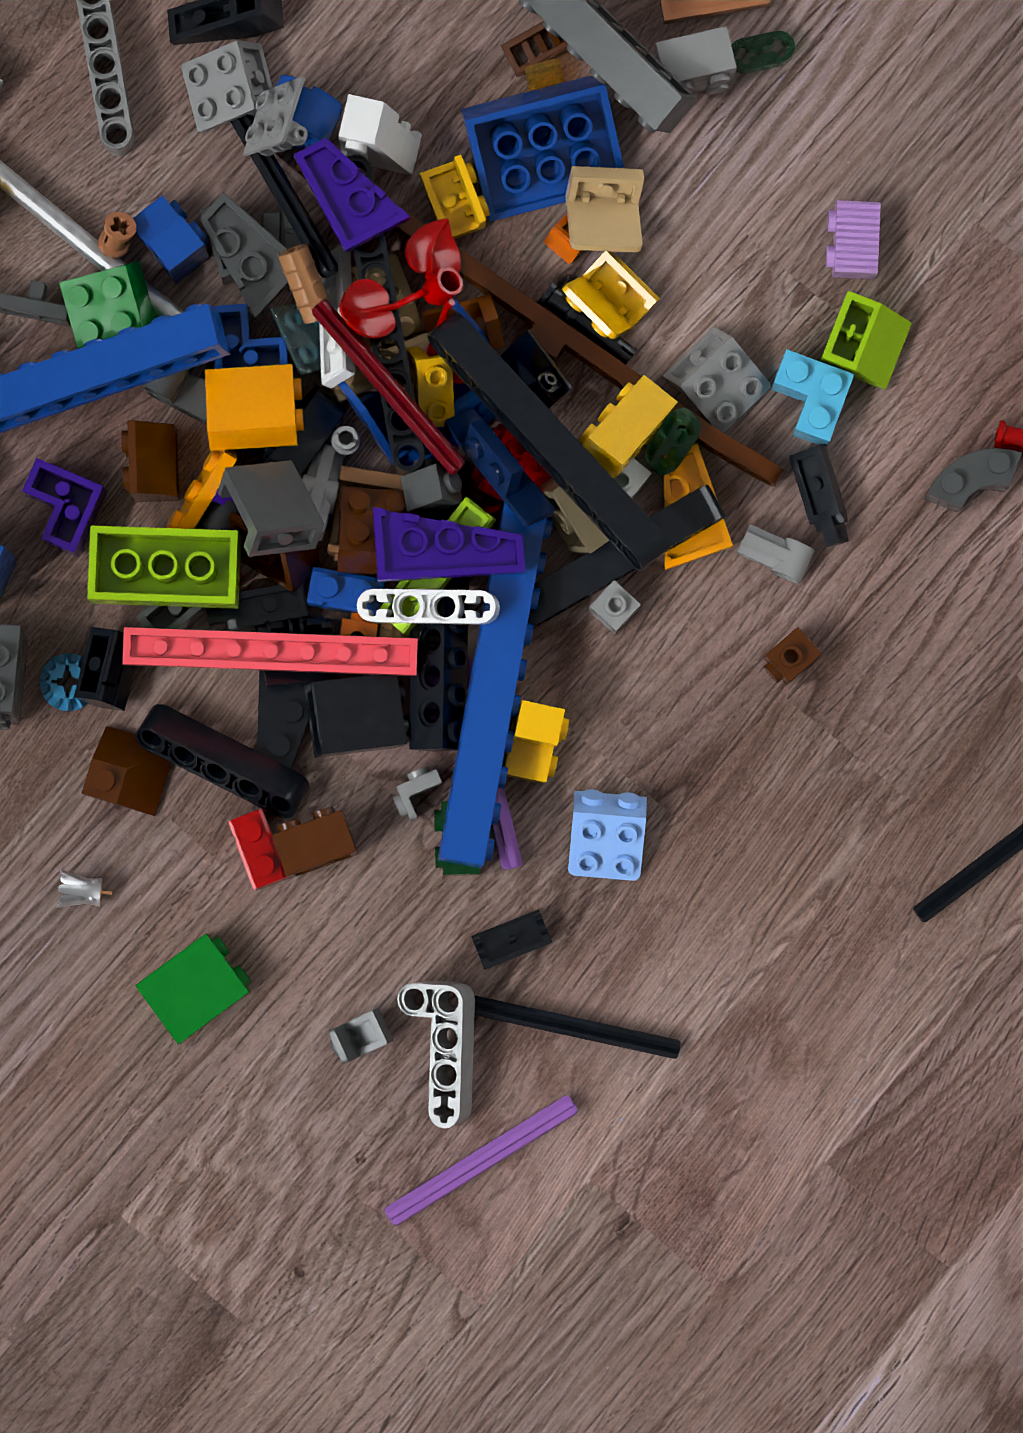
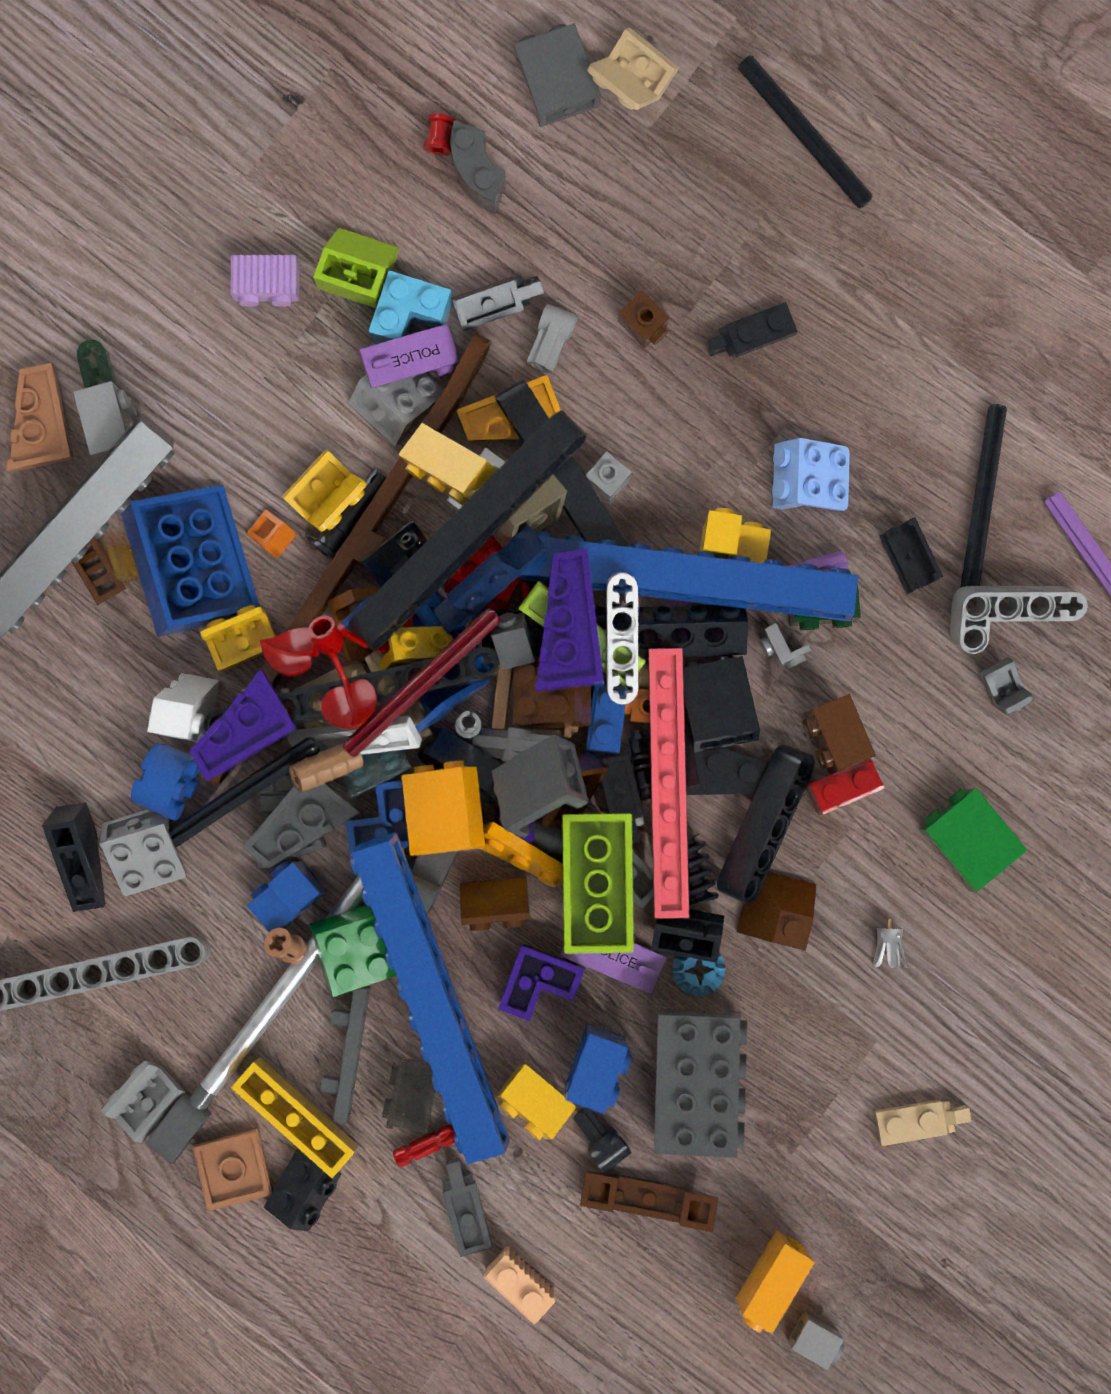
camera: 90 degrees left, 0 degrees up
(73, 611) = (635, 969): none -> medium lavender door
(173, 679) = (697, 883): none -> black piece
(273, 123) = (173, 803): light grey hinge -> none
(604, 208) = (245, 501): tan bracket -> none
(673, 441) = (457, 426): clear green beam -> none
(756, 395) = (410, 356): none -> medium lavender door
(774, 780) = (753, 332): none -> black hinge

